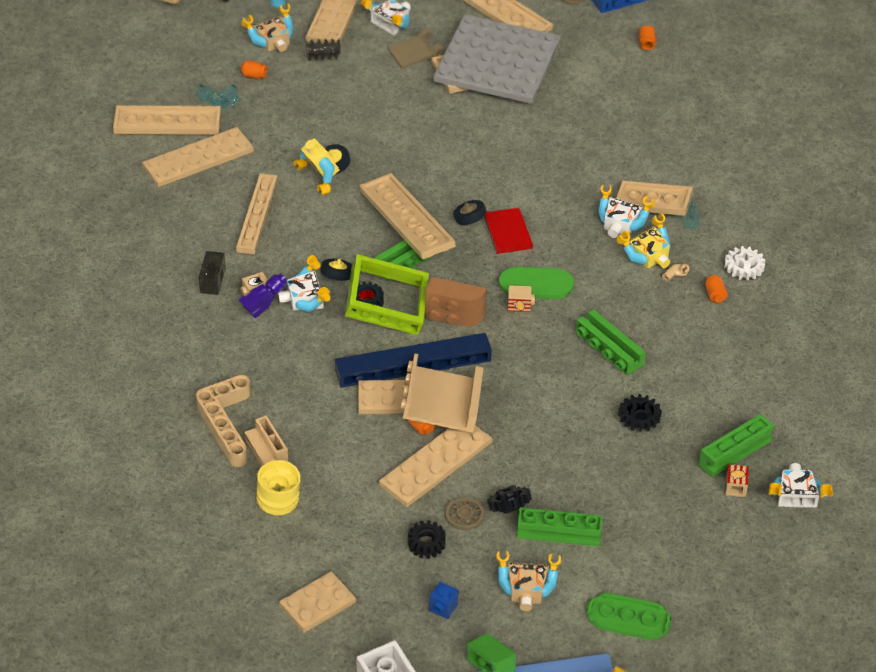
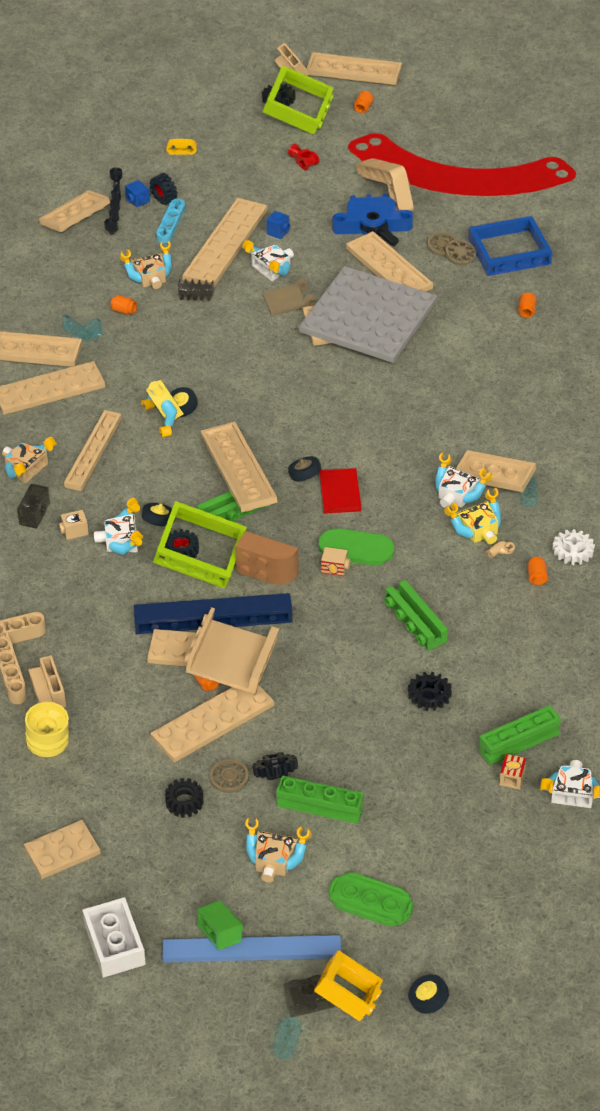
camera: 10 degrees right, 0 degrees up
(194, 229) = (26, 459): none -> torso
(262, 296) = (77, 534): dark purple piece -> none
(443, 600) = (186, 861): blue brick -> none

